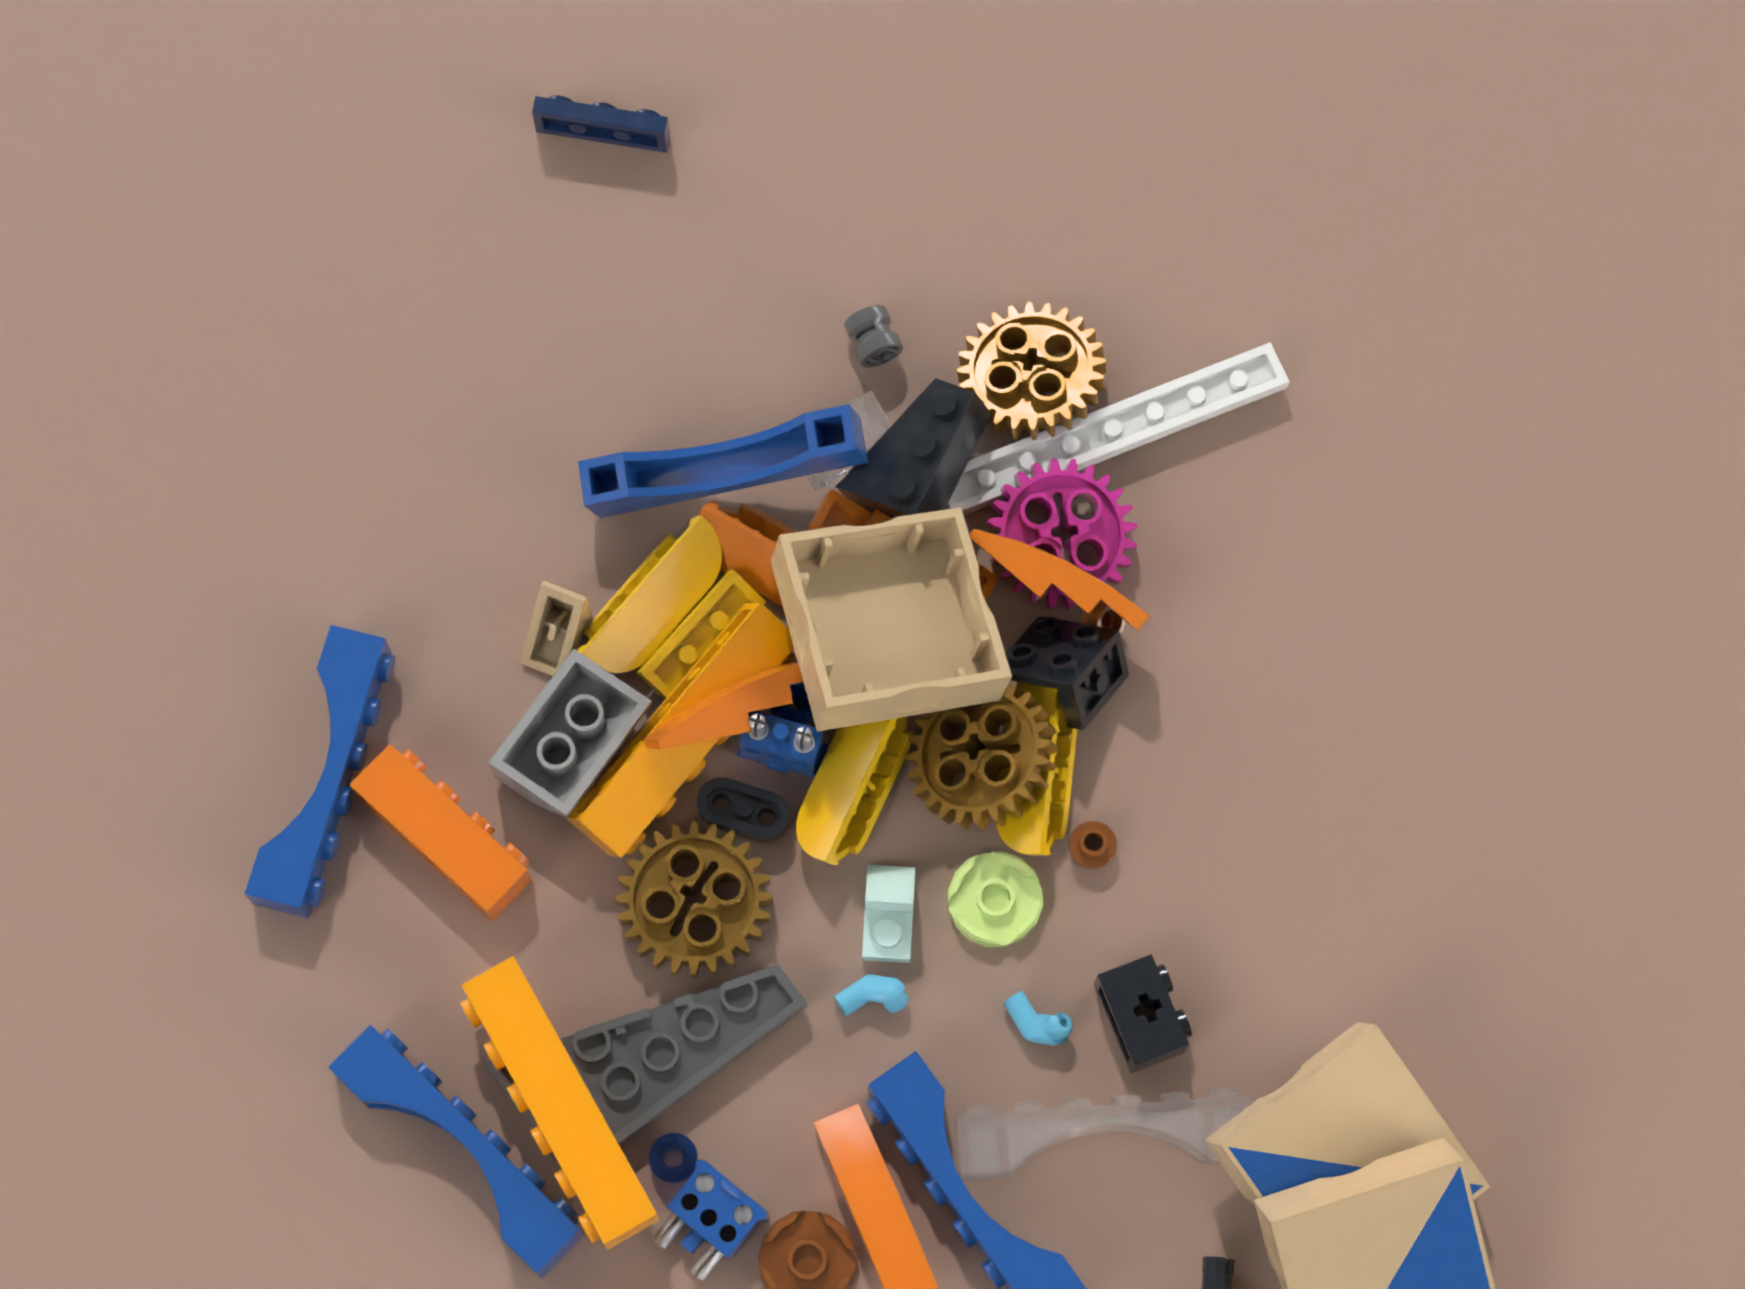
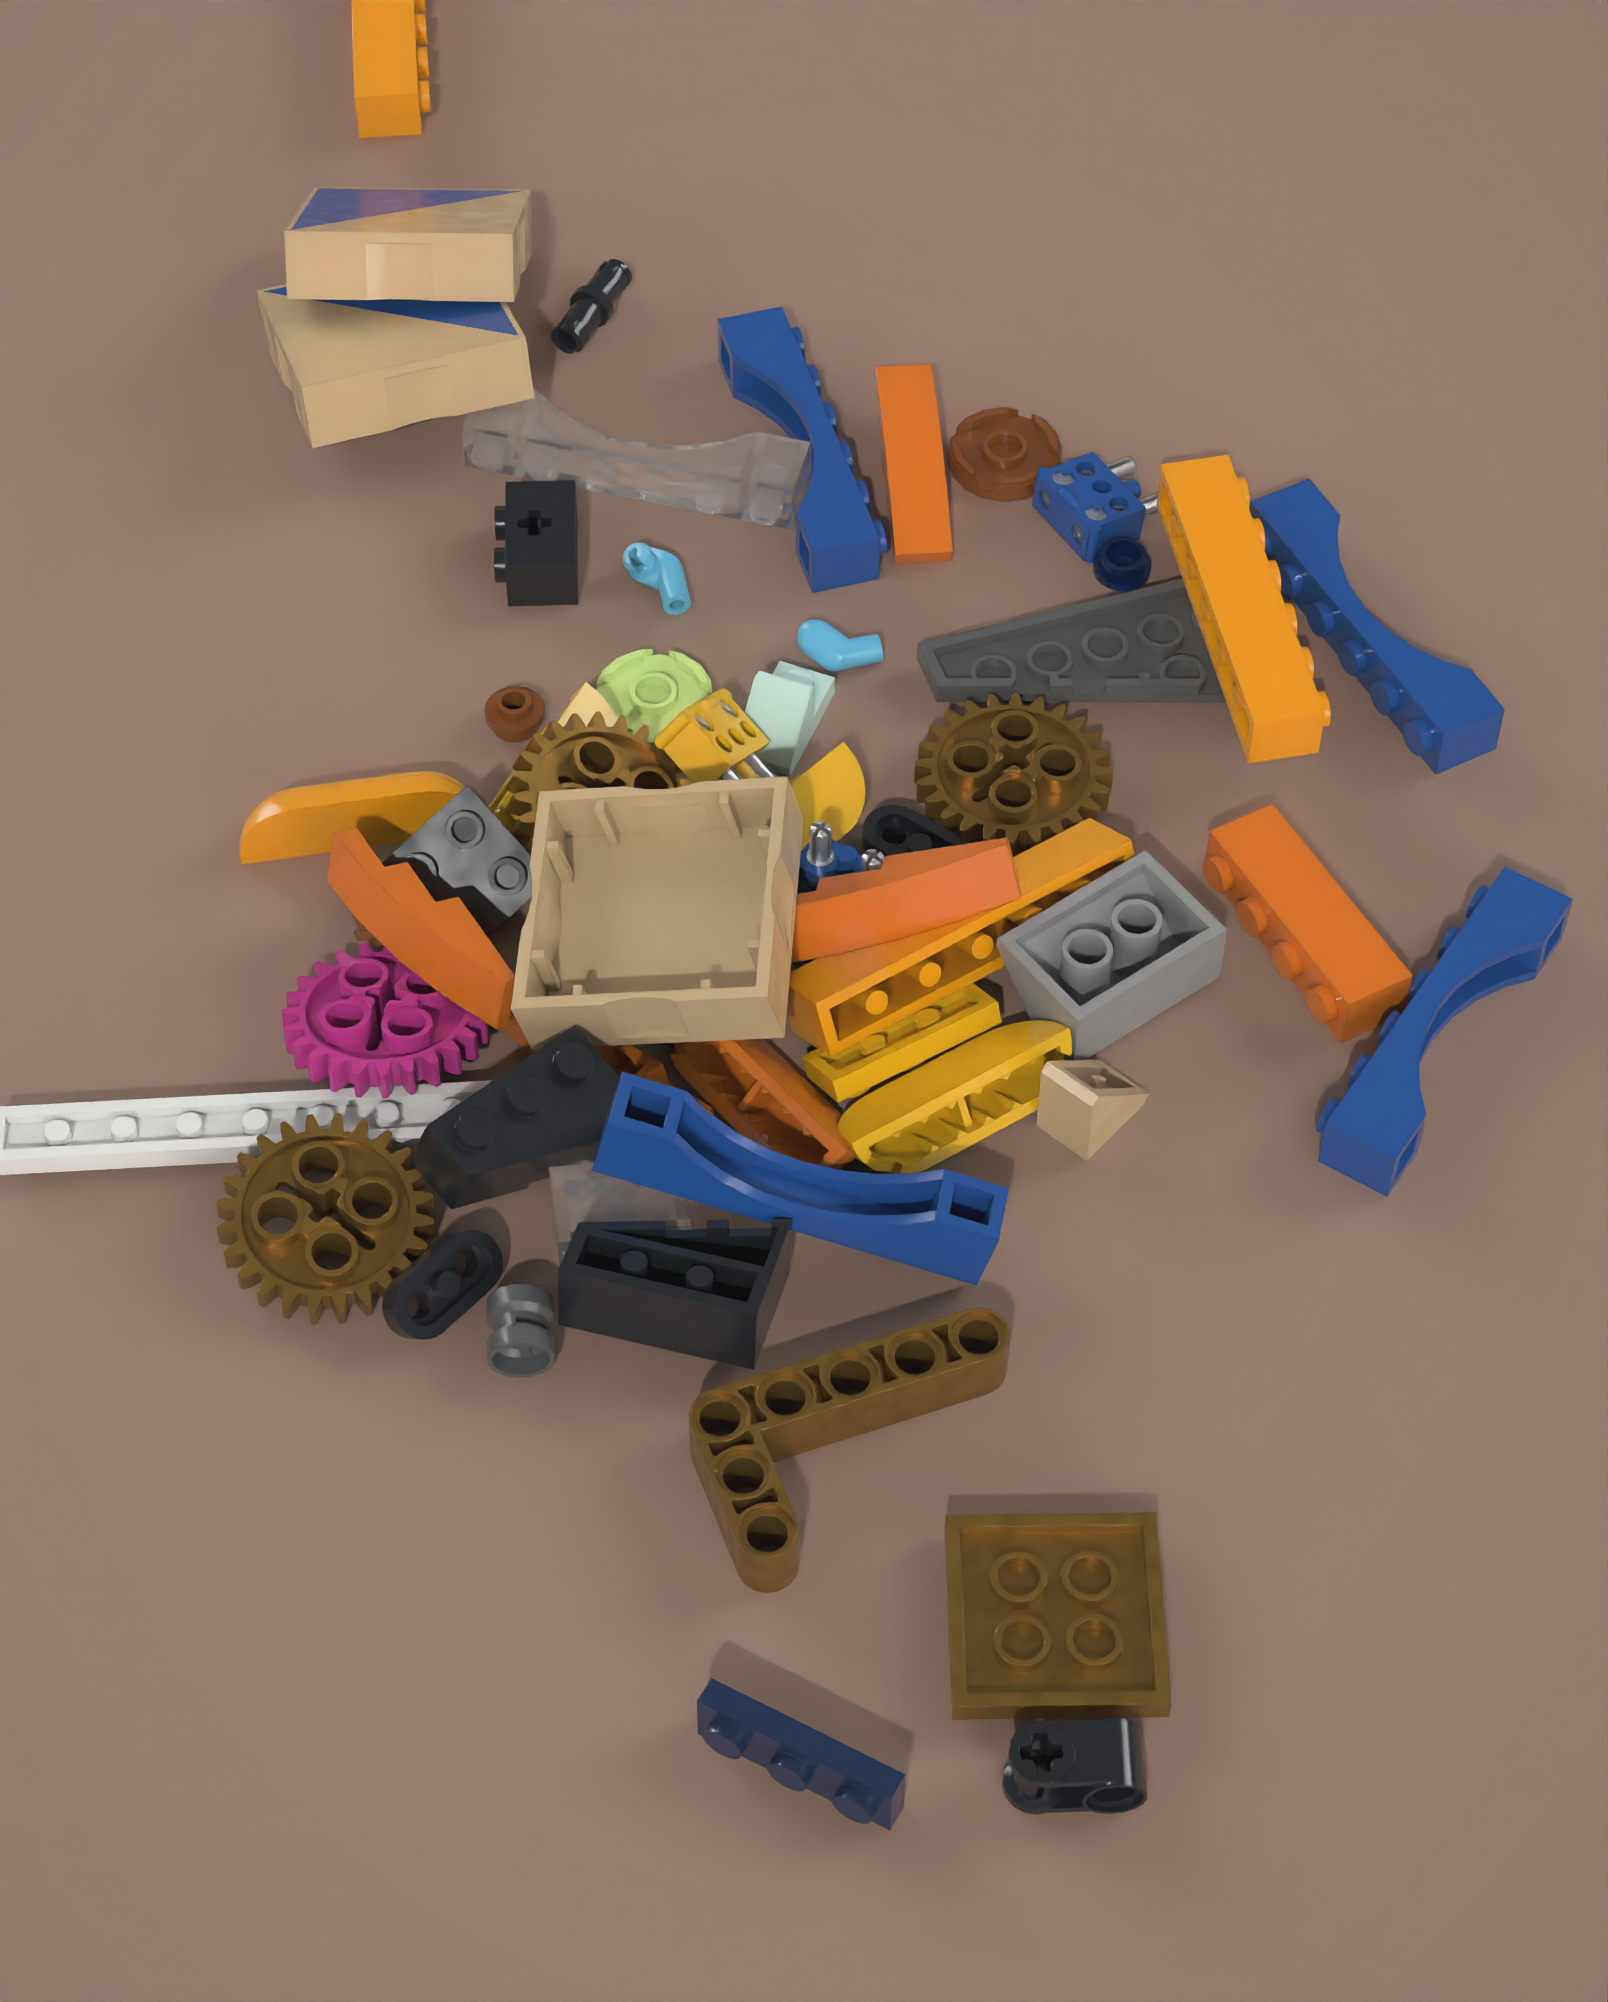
camera: 160 degrees left, 20 degrees down
(432, 166) = (1081, 1767): none -> black piece
(477, 258) = (1056, 1616): none -> pearl gold plate
(659, 337) = (826, 1418): none -> pearl gold beam
(780, 383) = (677, 1289): none -> black wedge
(922, 834) = (715, 741): none -> yellow piece
(937, 350) = (438, 1286): none -> black plate
(1162, 710) = (380, 807): none -> light orange brick

